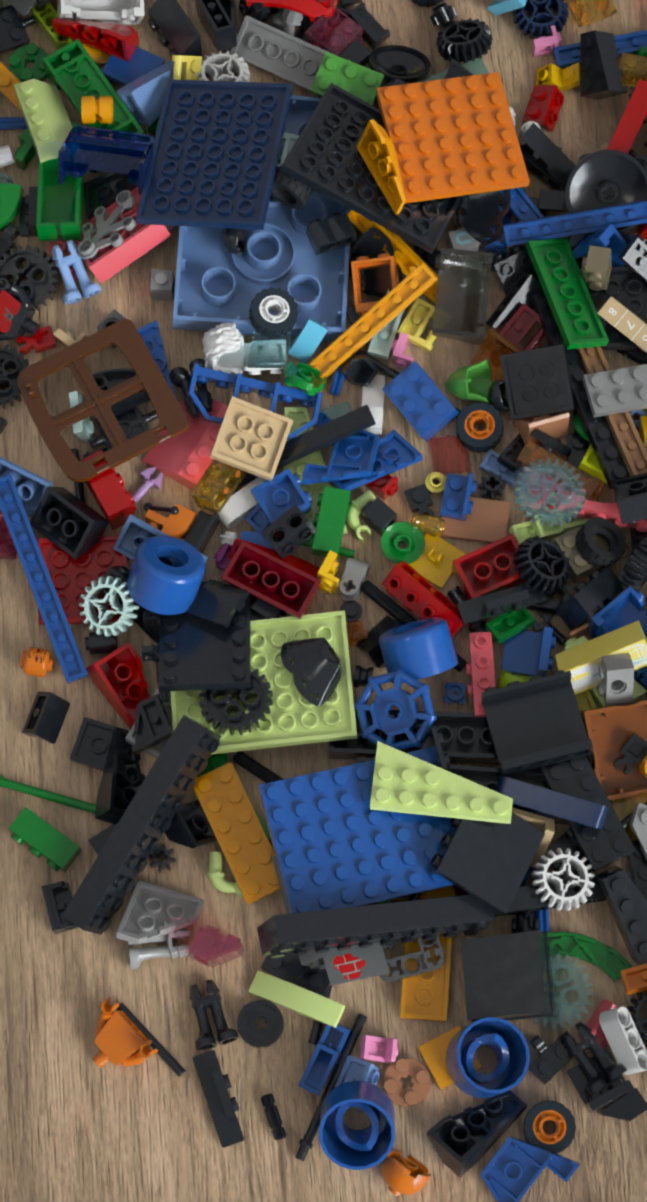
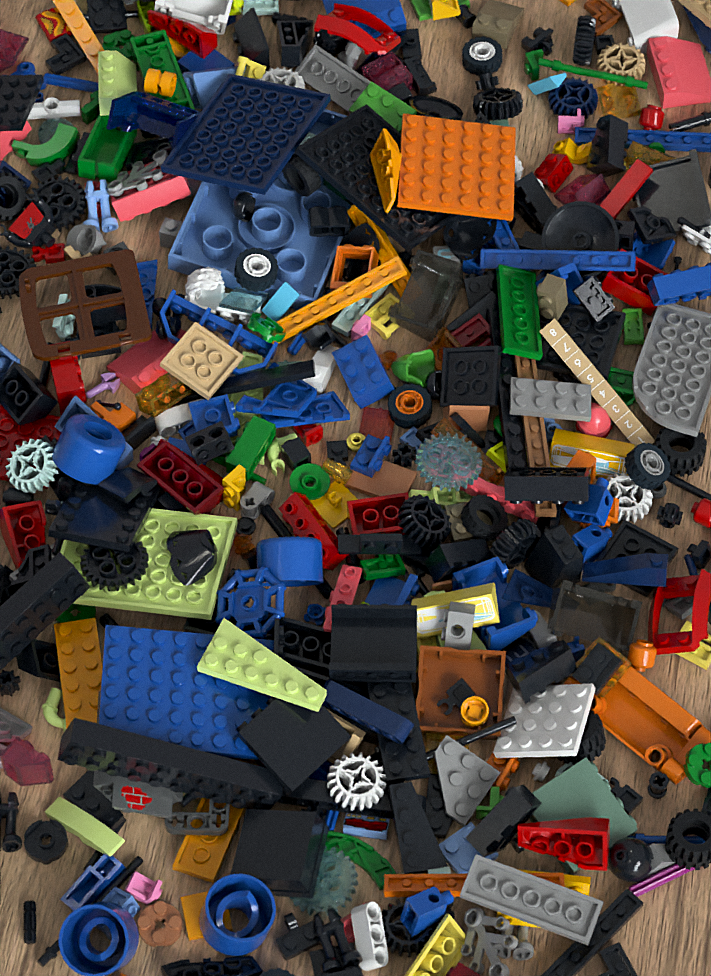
camera: 15 degrees right, 15 degrees down
(71, 316) = (85, 239): none -> light grey piece
(442, 371) = (388, 355): none -> clear orange plate
(583, 917) = (366, 826): none -> slope
(585, 126) = (584, 188): none -> clear pink slope
(631, 17) = (651, 117): none -> red head

